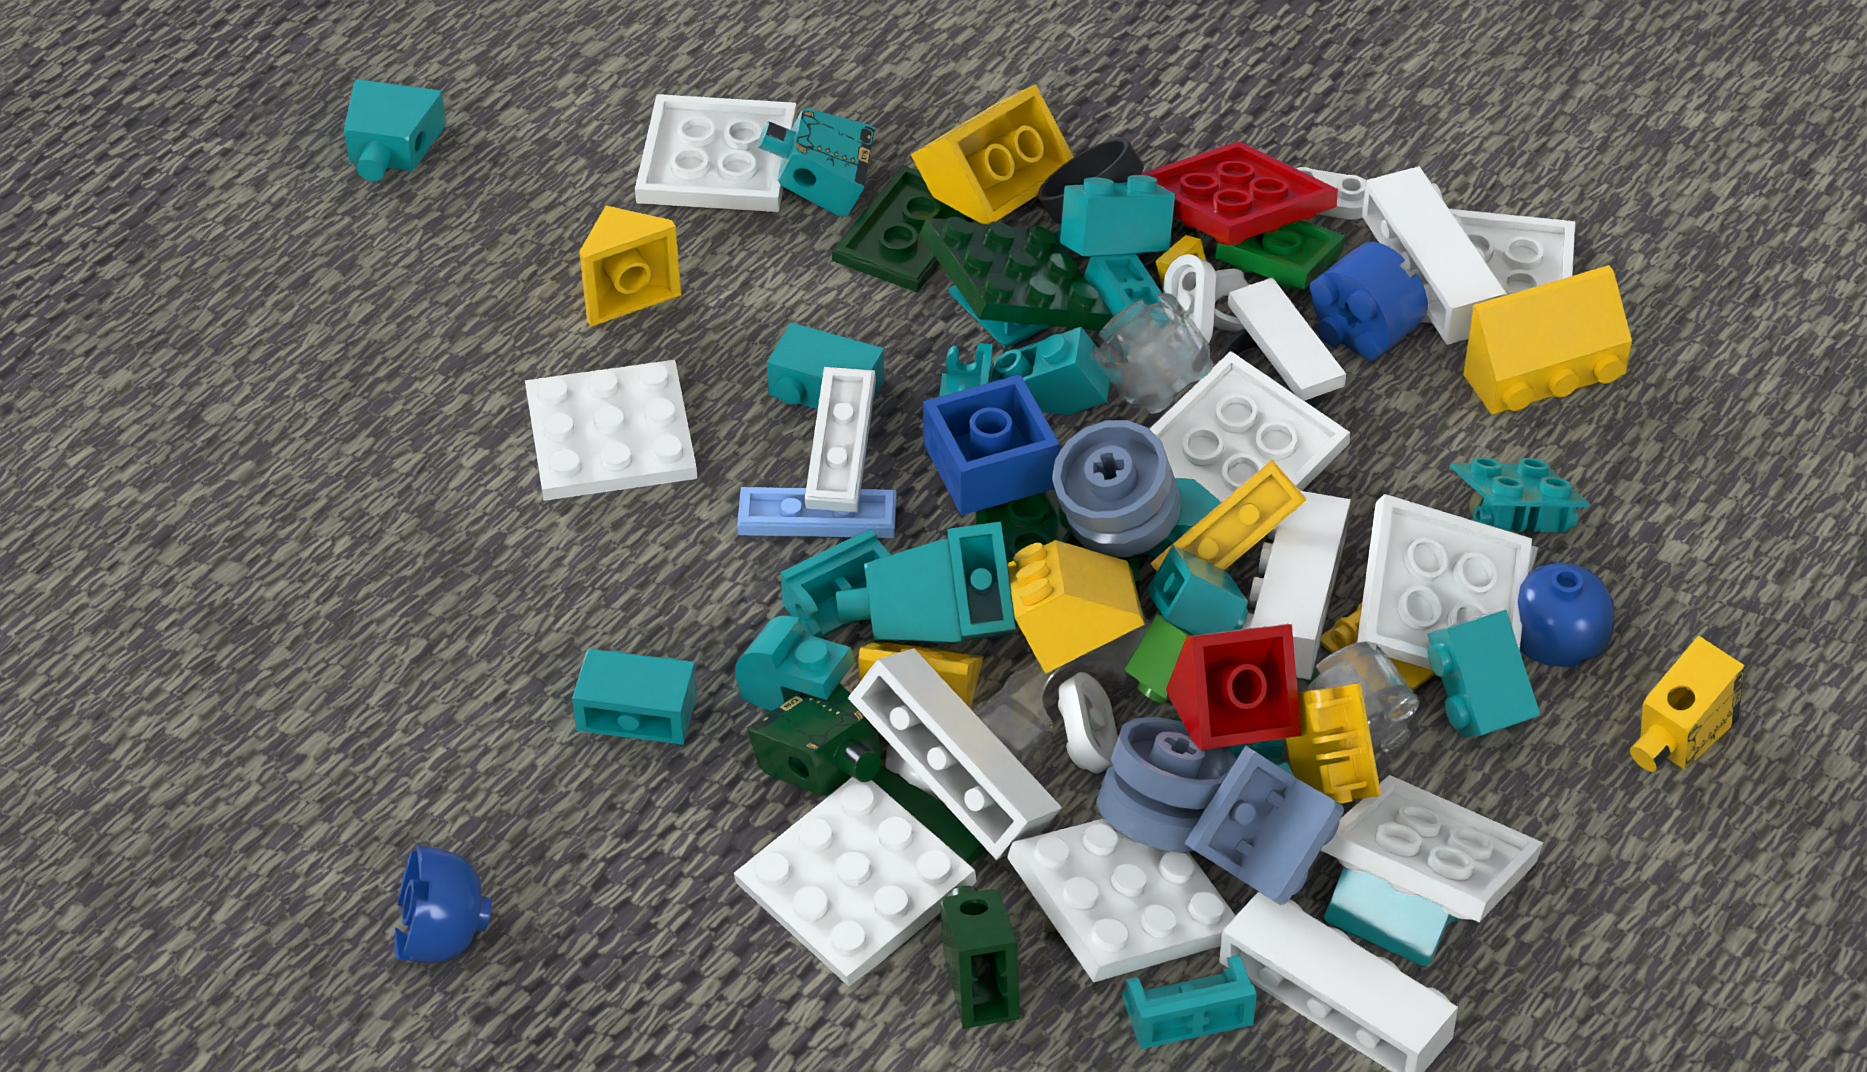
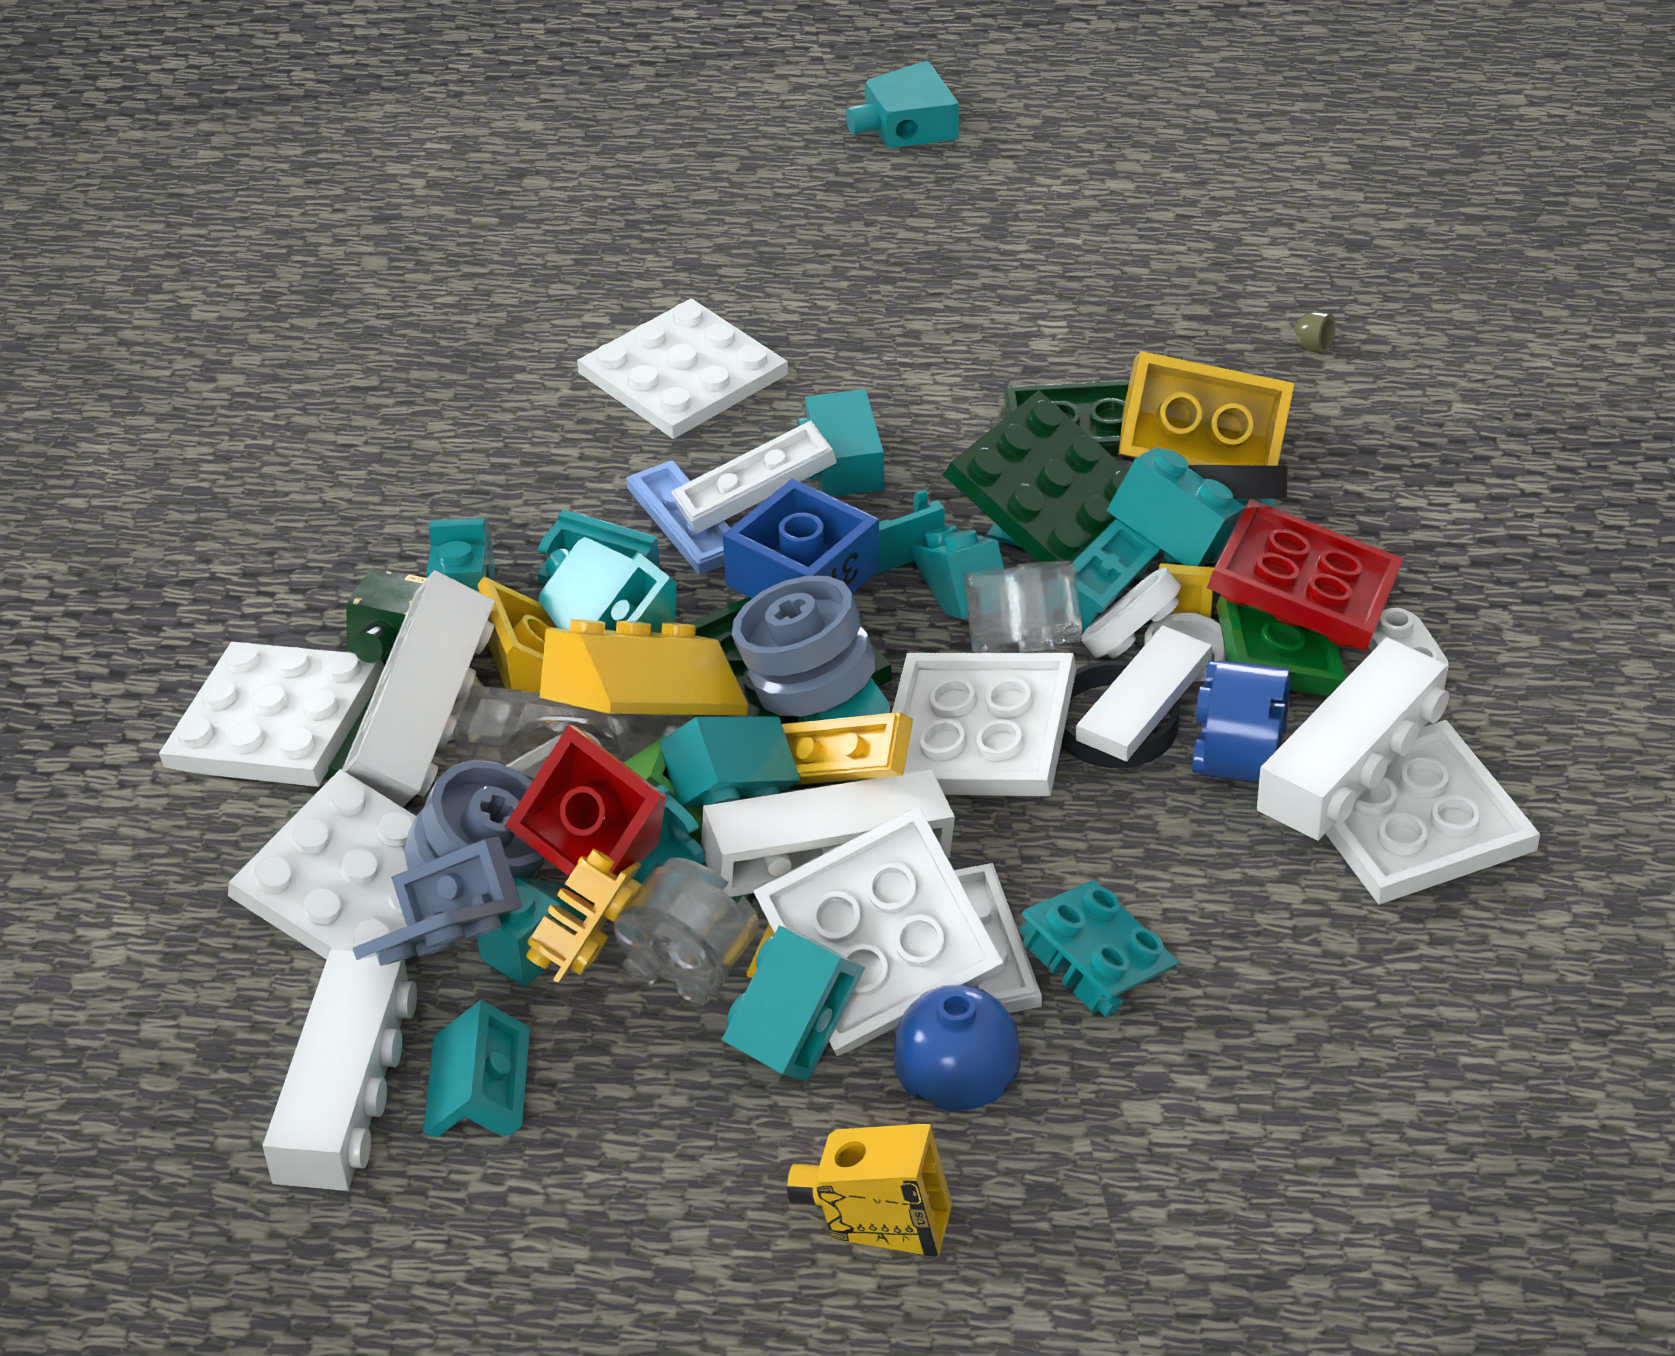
camera: 60 degrees right, 5 degrees down
(439, 906) = (76, 494): blue cylinder -> none
(628, 264) = (841, 274): yellow slope -> none
(635, 696) = (383, 503): teal brick -> none
(710, 155) = (1059, 276): white plate -> none
(822, 158) = (1097, 323): teal torso -> none
(926, 54) = (1315, 329): none -> olive hinge
(979, 927) = (214, 809): dark green torso -> none
(1191, 1006) = (255, 977): teal hinge -> none
(1433, 849) = (538, 1059): white plate -> none
(1547, 341) = (1319, 873): yellow slope -> none

